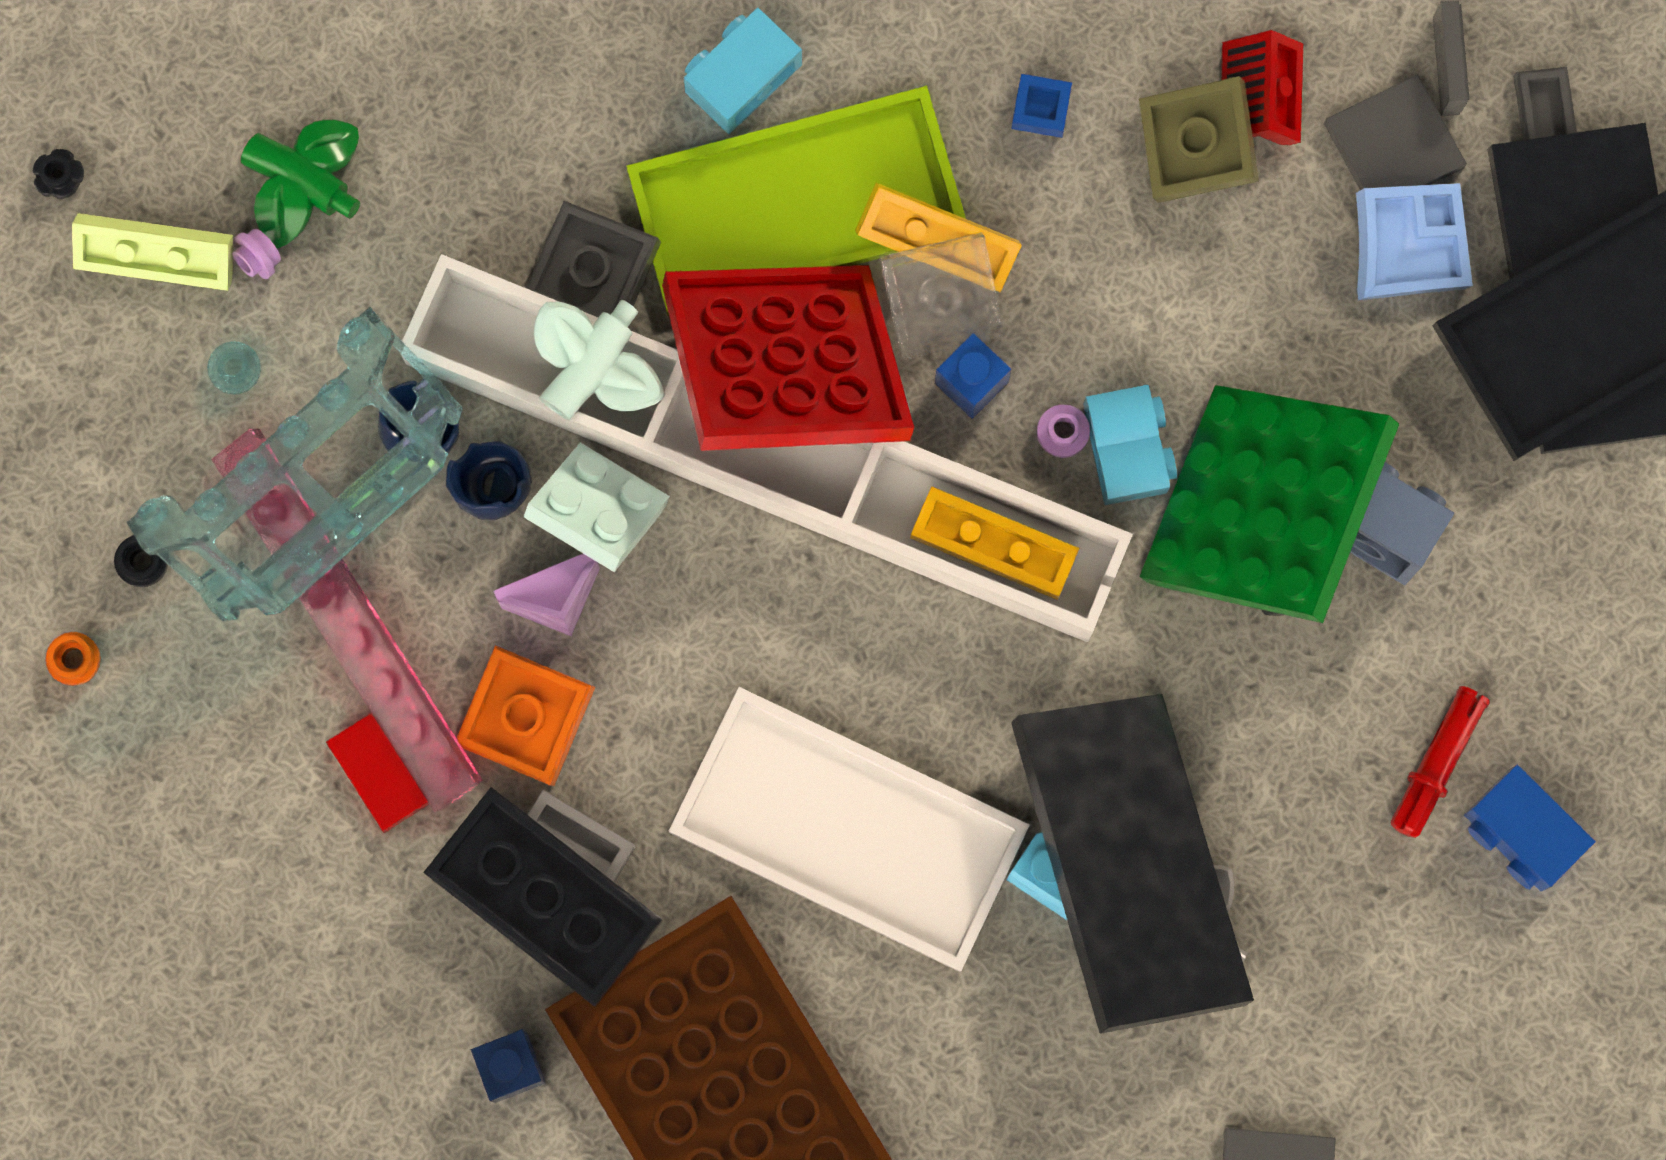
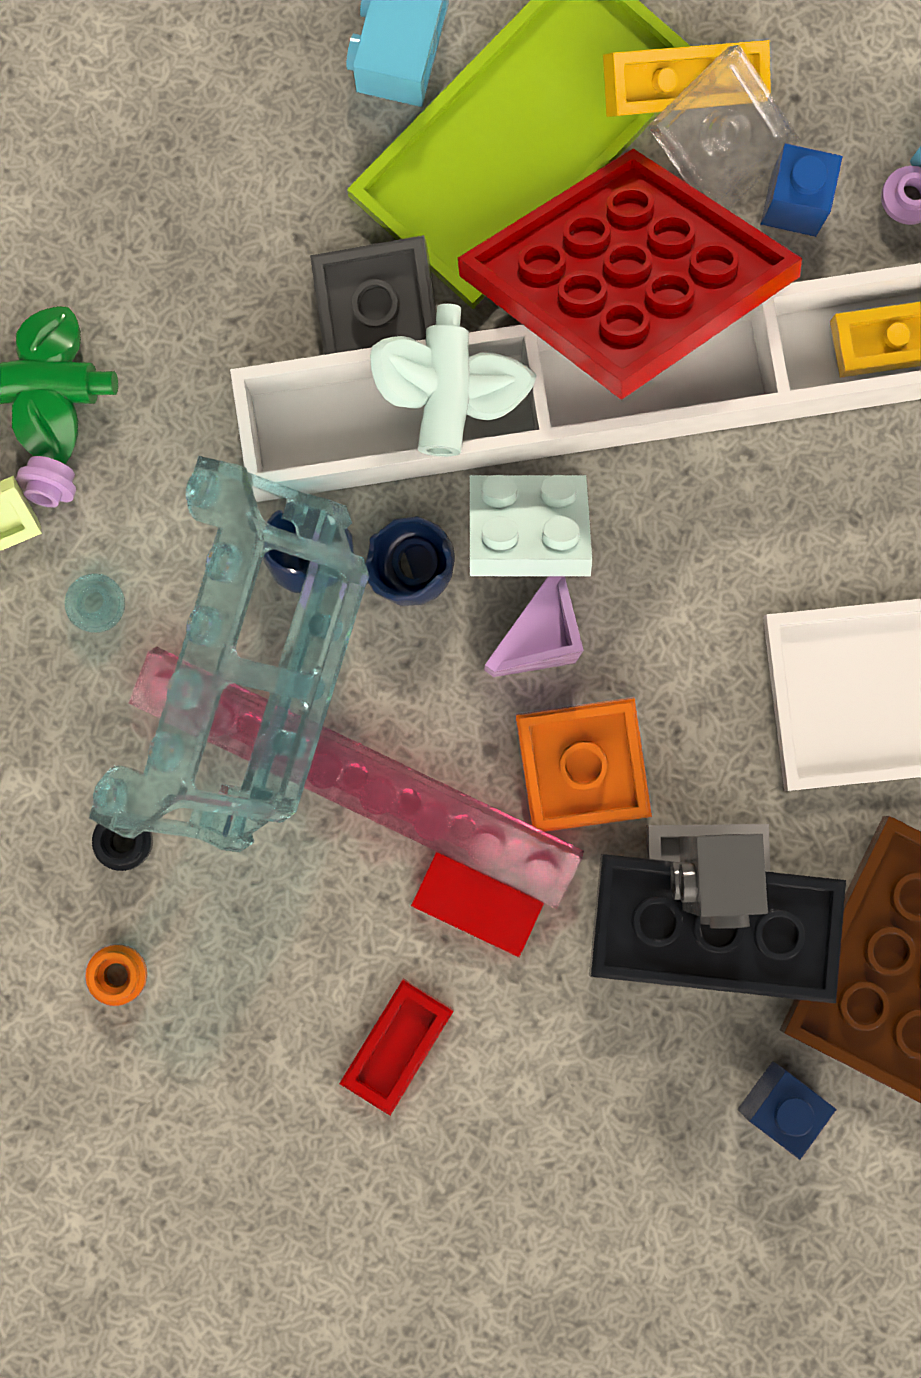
camera: 30 degrees left, 5 degrees up
(248, 842) = (396, 1047): none -> red tile
(555, 845) = (721, 878): none -> dark grey brick

